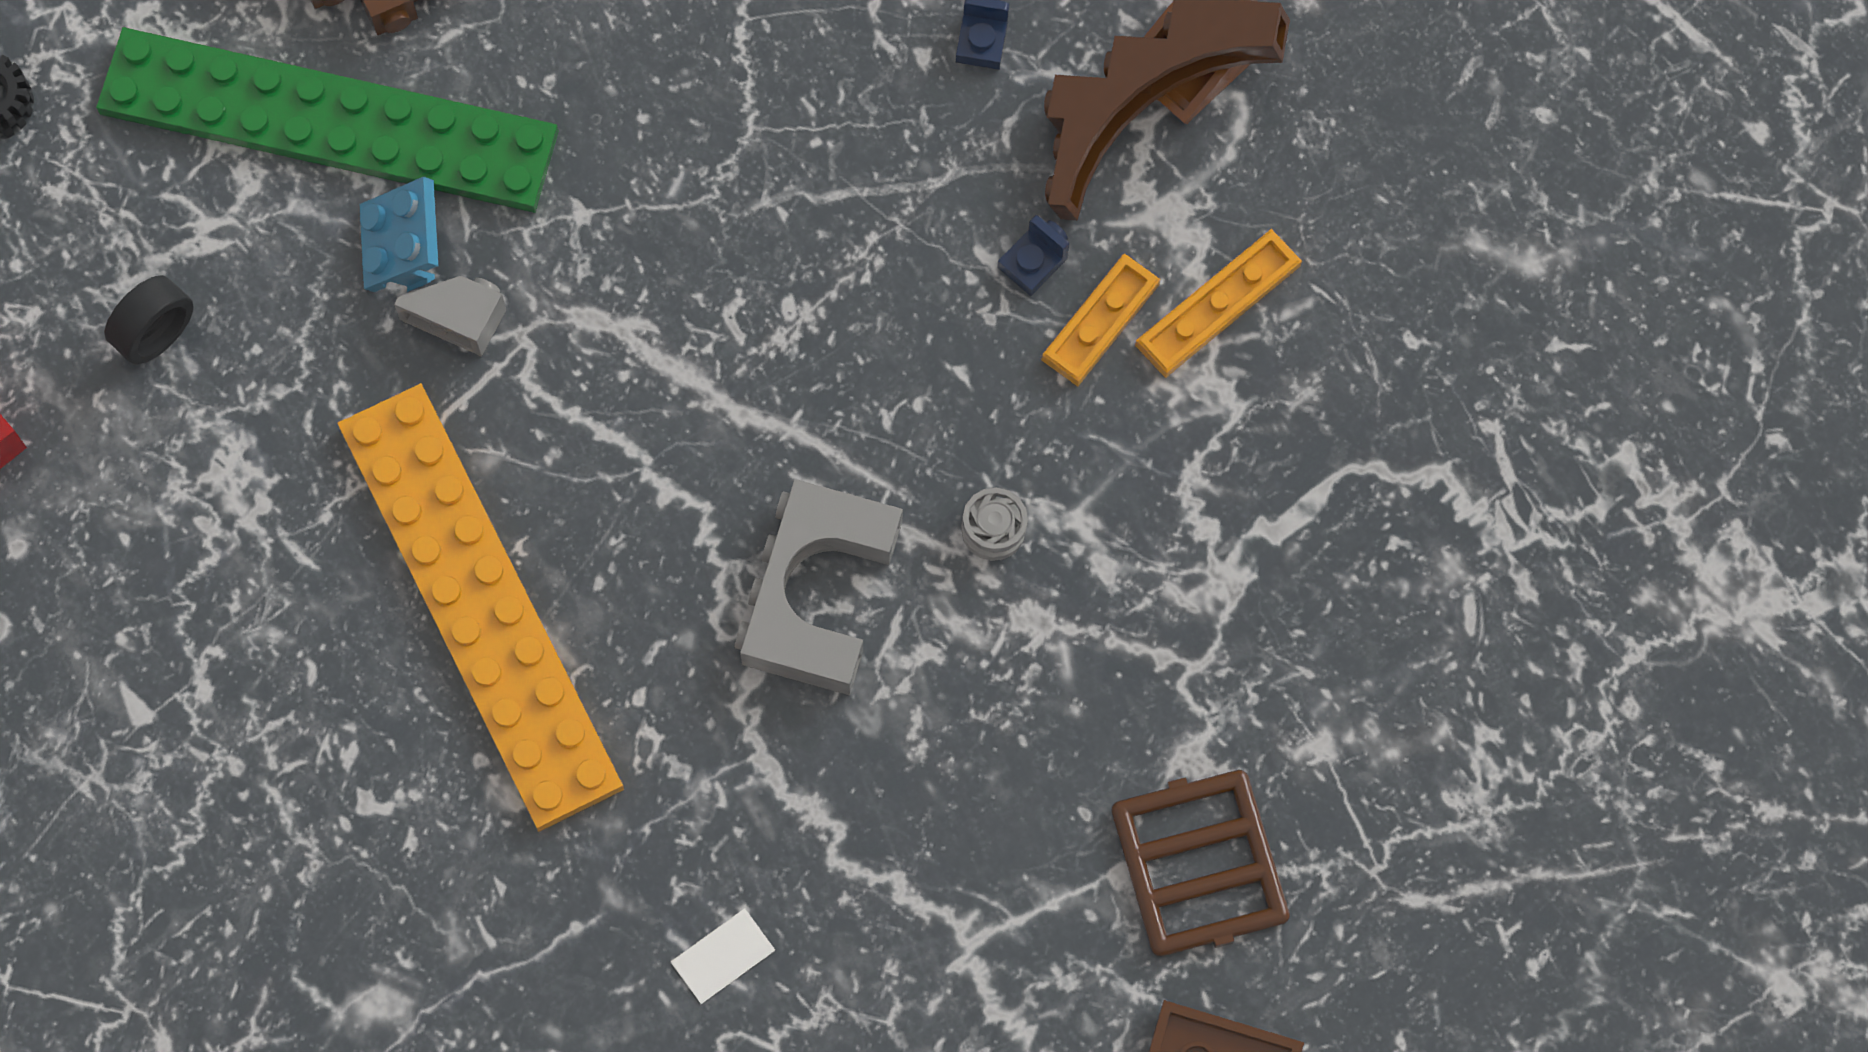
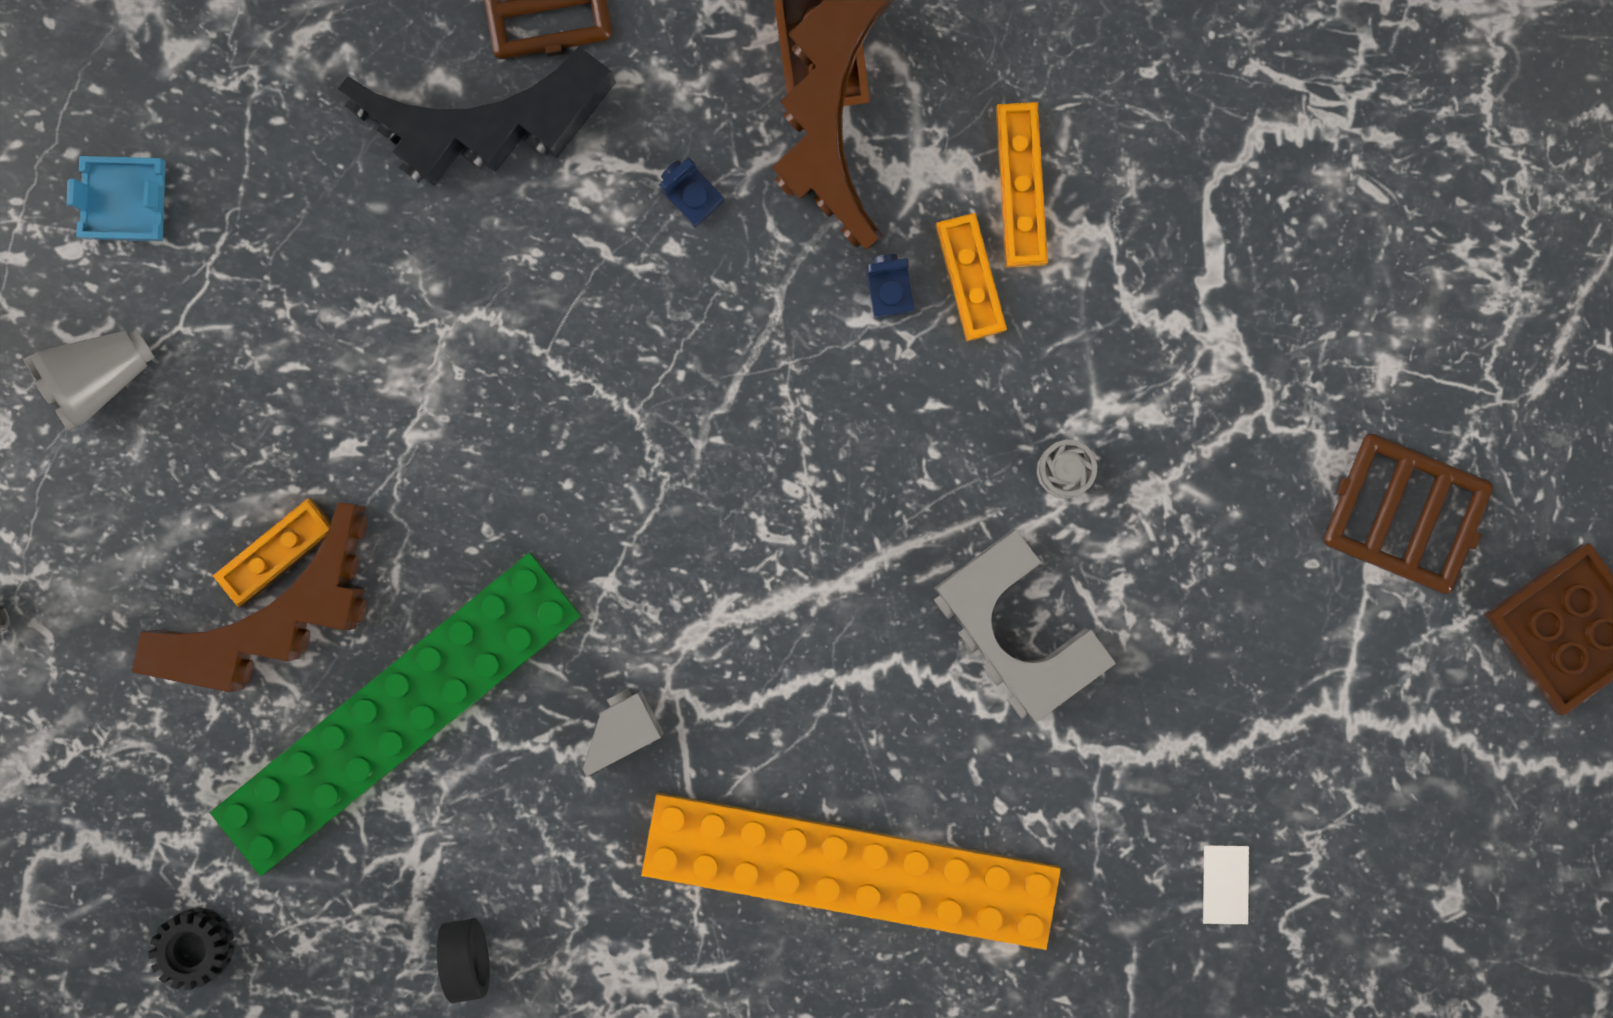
camera: 50 degrees left, 15 degrees up
(399, 236) = (533, 731): dark azure piece -> none

